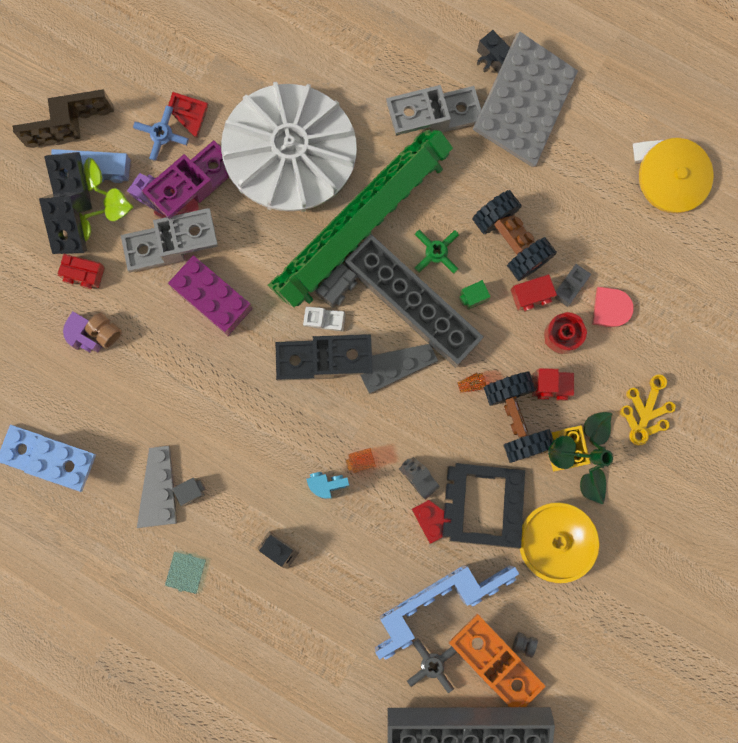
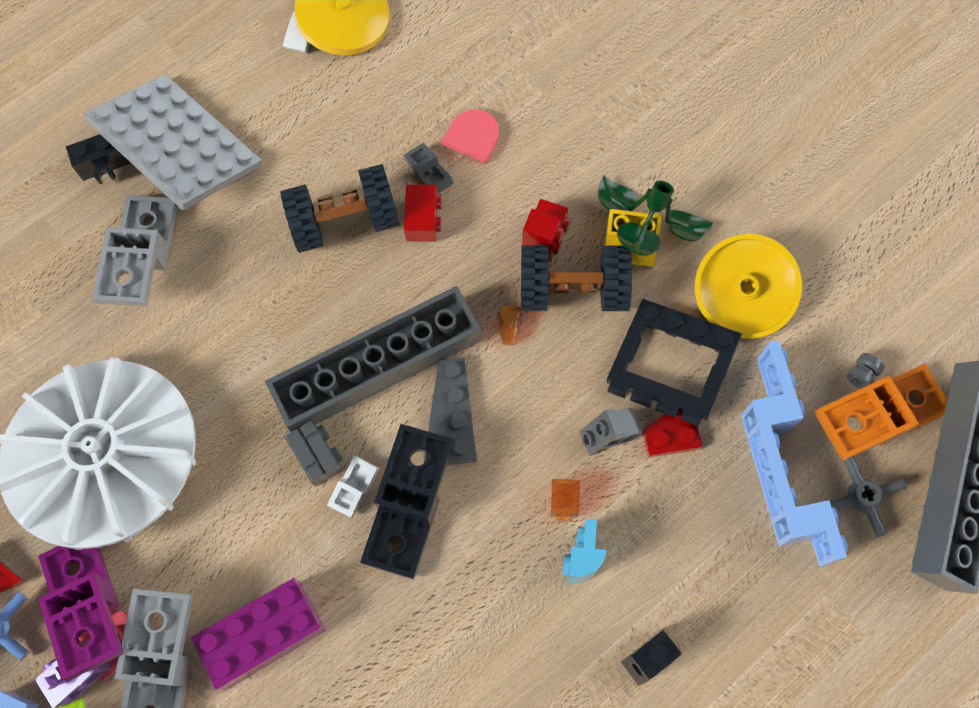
camera: 65 degrees left, 10 degrees down
(360, 217) = (238, 394): green brick -> none
(436, 258) = (324, 319): green bar -> none
(474, 295) = (396, 283): green brick -> none
(575, 330) = (486, 193): red brick -> none
(646, 412) = (614, 139): yellow plant -> none

